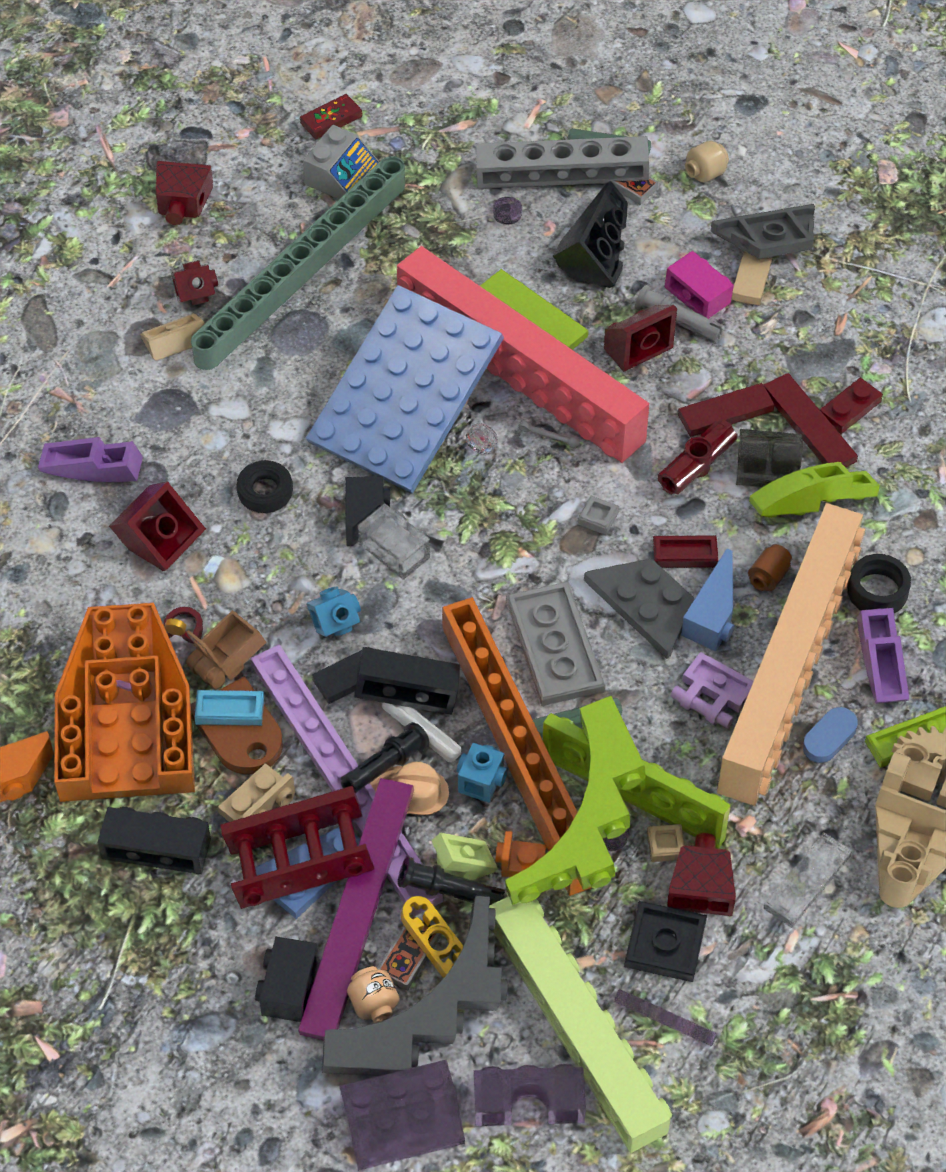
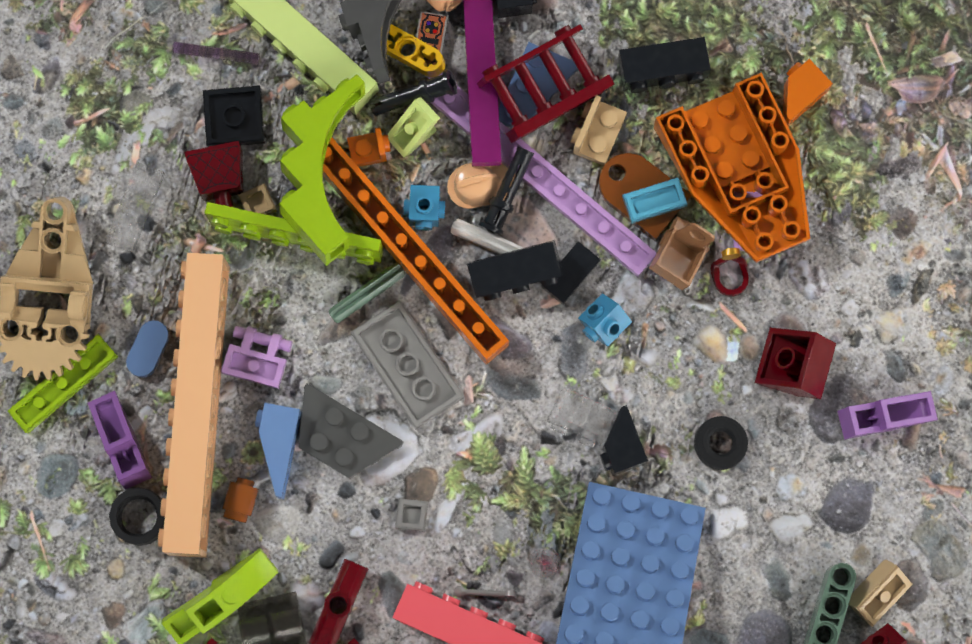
camera: 160 degrees right, 25 degrees up
(685, 551) = (322, 500): dark red tile -> none

